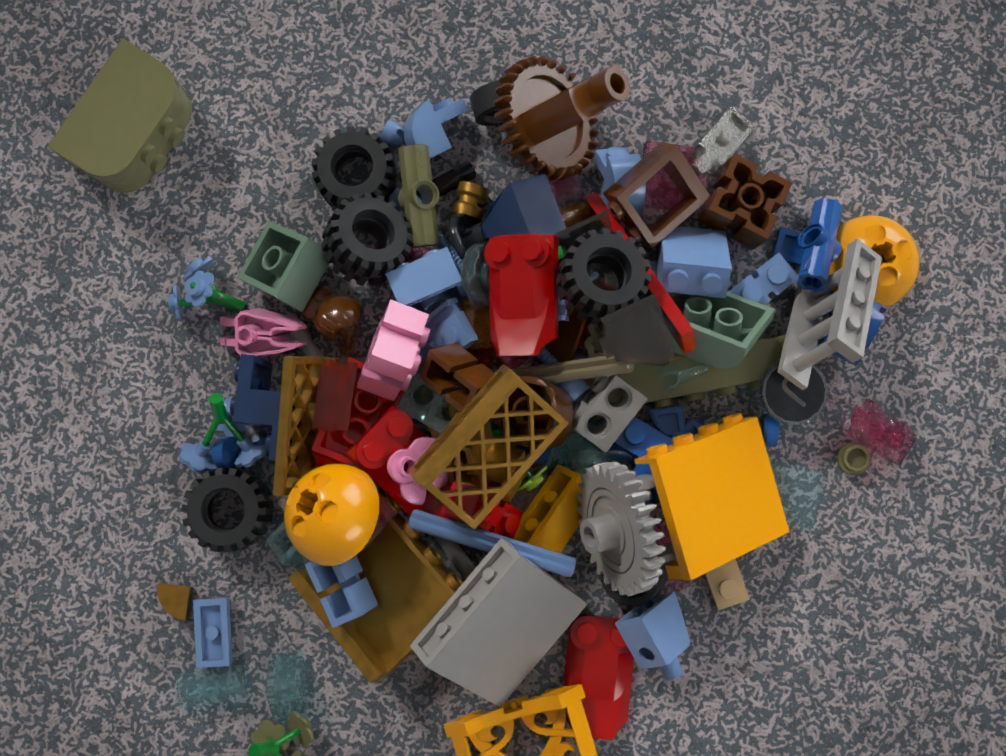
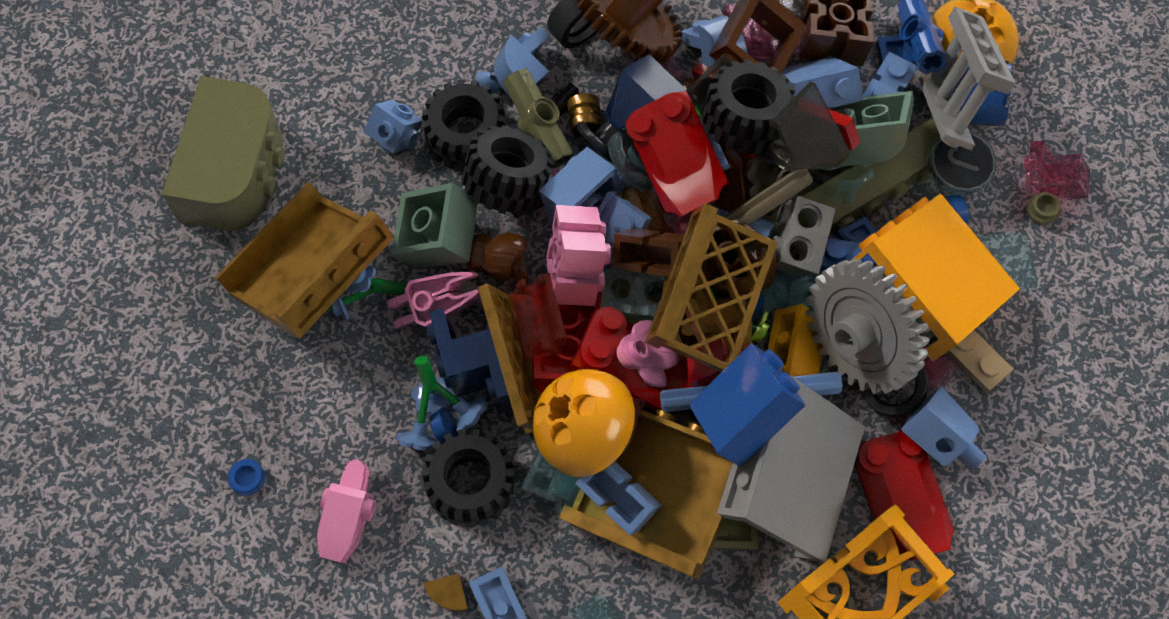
camera: 25 degrees left, 15 degrees down
(45, 429) = (246, 477): none -> blue tile
(113, 498) = (345, 513): none -> bright pink hinge
(157, 253) = (304, 260): none -> pearl gold panel
(289, 147) = (393, 126): none -> medium blue brick
(471, 566) = (747, 404): none -> blue brick

